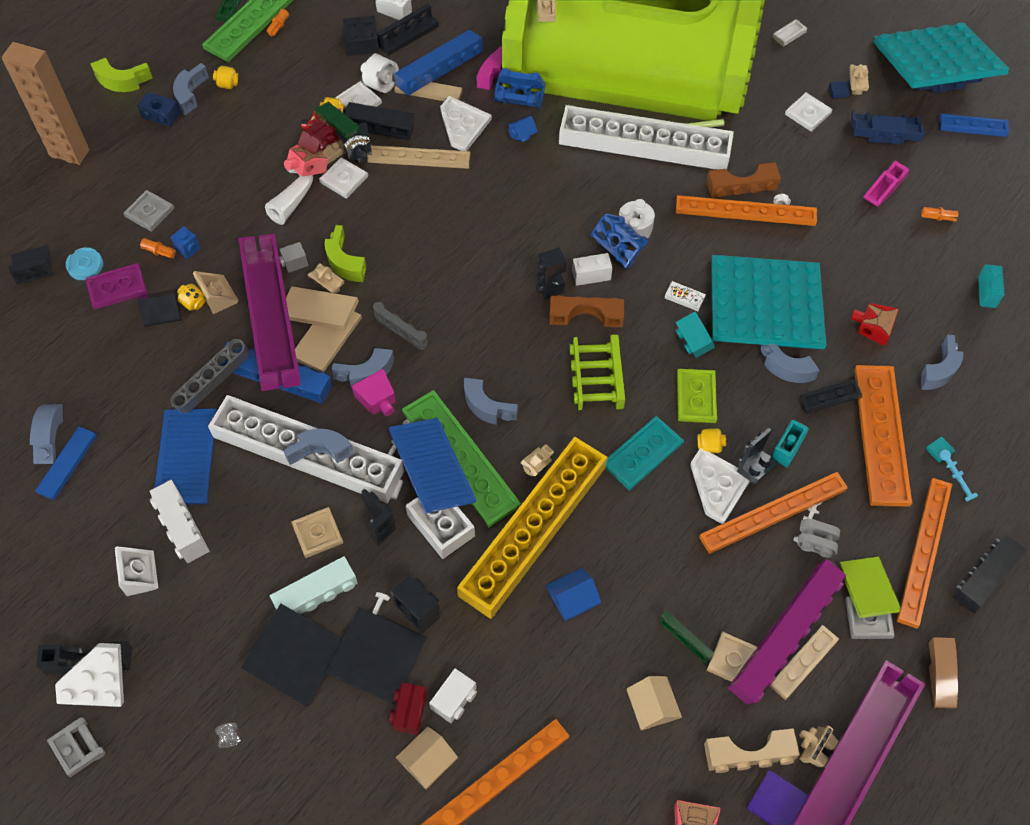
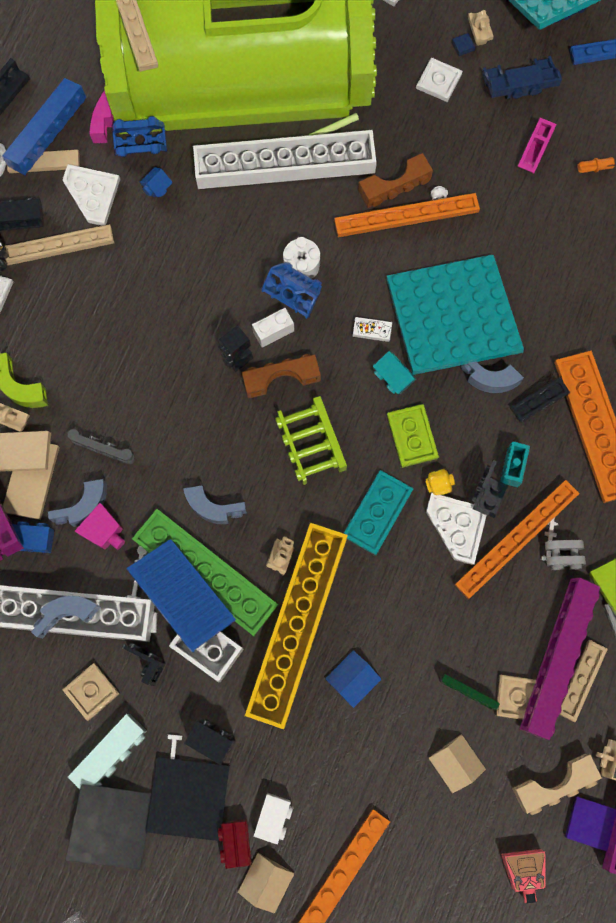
camera: 15 degrees left, 15 degrees up
(876, 322) = (564, 306): red torso -> none

